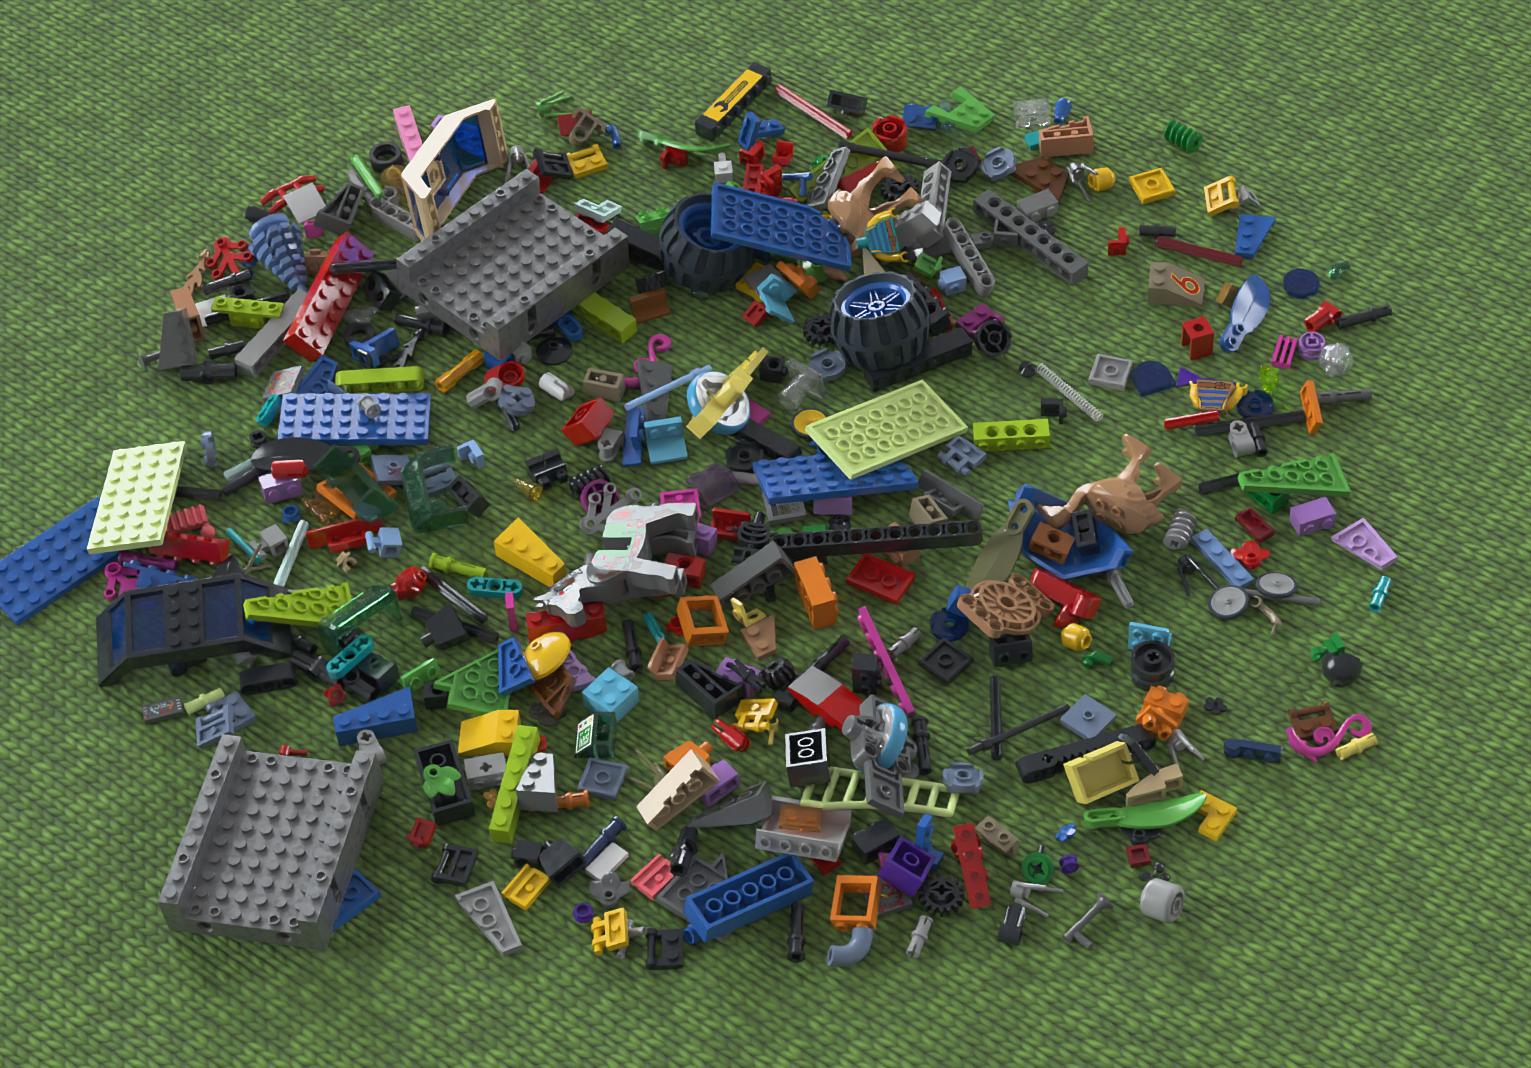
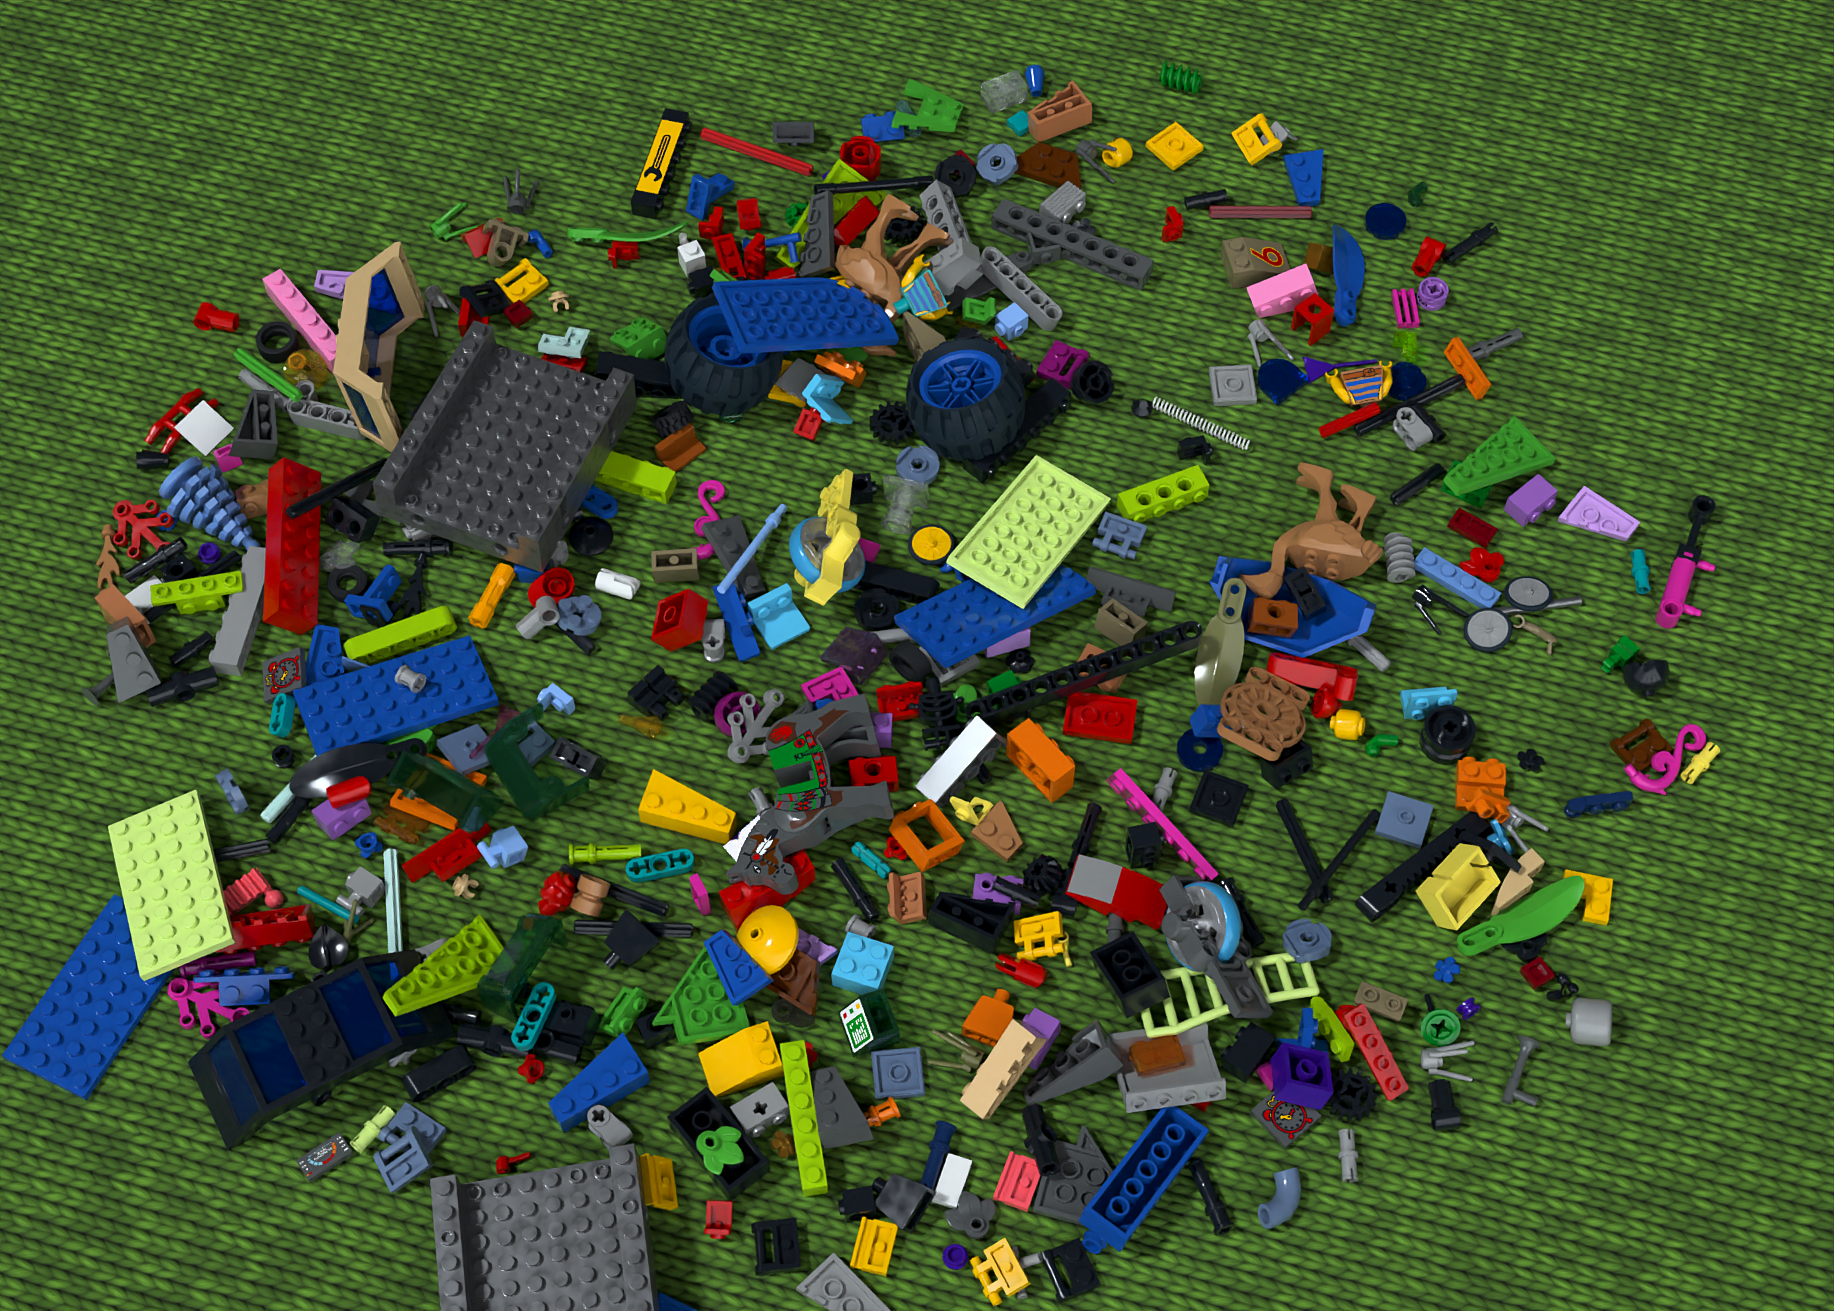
camera: 25 degrees left, 10 degrees up
(269, 288) = (209, 553): none -> dark purple plate
(345, 128) = (210, 317): none -> red piece
(389, 795) = (658, 1181): none -> yellow plate
(431, 590) = (590, 894): none -> medium nougat wheel
(573, 181) = (518, 313): none -> dark red plate
(609, 177) = (559, 297): none -> tan plate
(611, 102) = (517, 202): none -> dark grey plant
(749, 497) = (910, 662): none -> black tyre
(856, 884) = (1257, 1115): orange window -> none
(948, 842) = (1332, 1029): none -> lime hinge
(1152, 339) = (1261, 332): none -> light grey plant
(1157, 751) = (1500, 837): none -> dark azure animal
(1172, 312) = (1282, 292): none -> bright pink wedge
(1335, 359) = (1466, 303): clear plant -> none
(1421, 597) = (1683, 567): none -> dark pink piece

